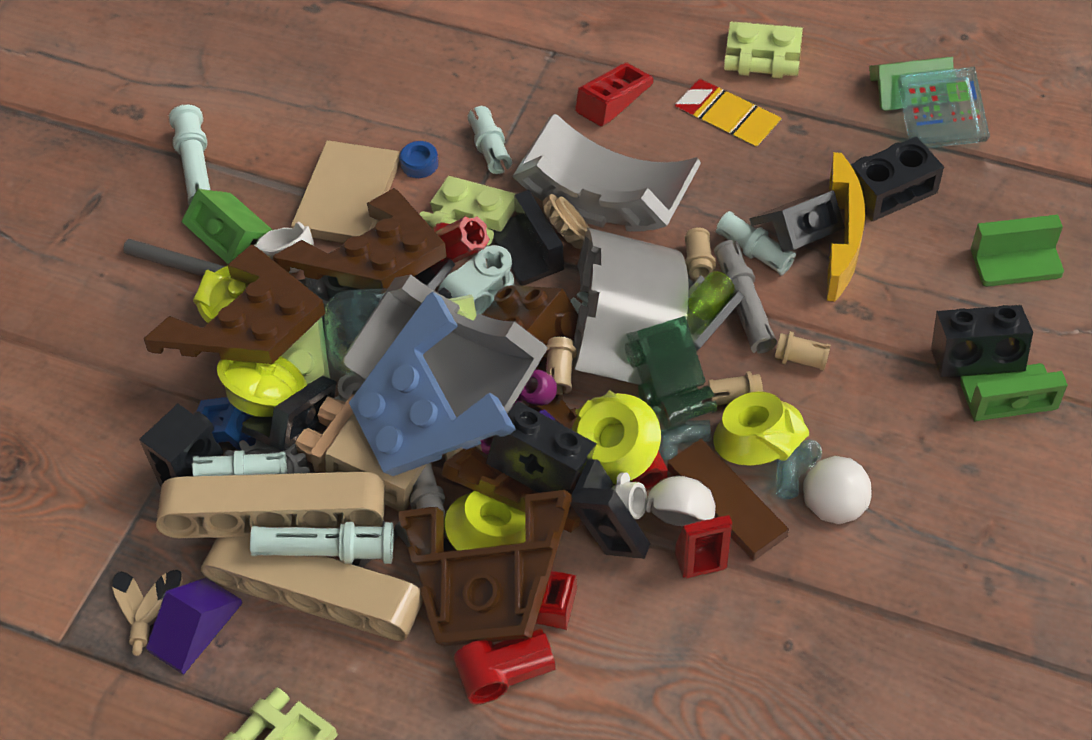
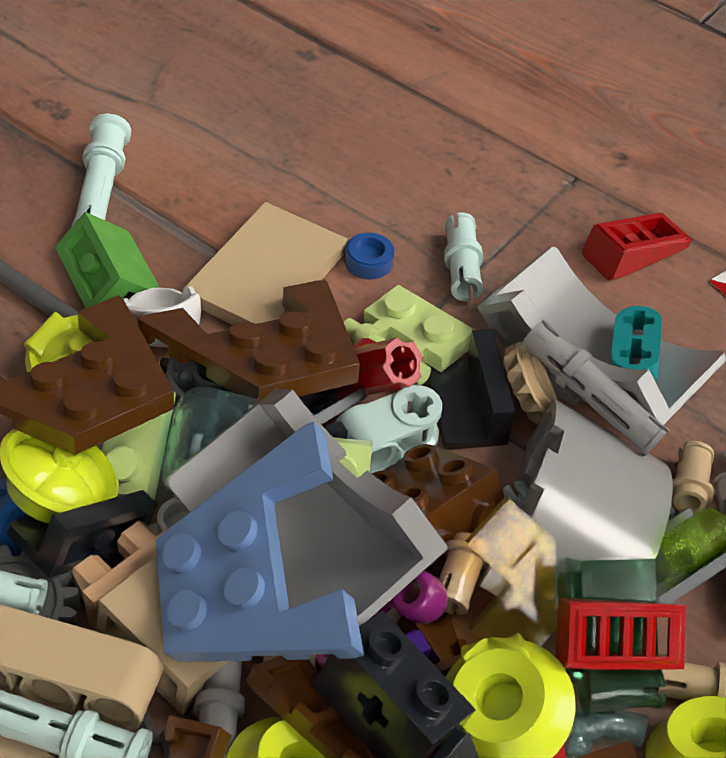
camera: 10 degrees right, 5 degrees down
(599, 204) = (591, 384): none -> light grey pin
(601, 342) = (527, 560): none -> clear yellow tile
(638, 171) = (644, 346): none -> teal beam
(644, 379) = (572, 635): none -> red slope

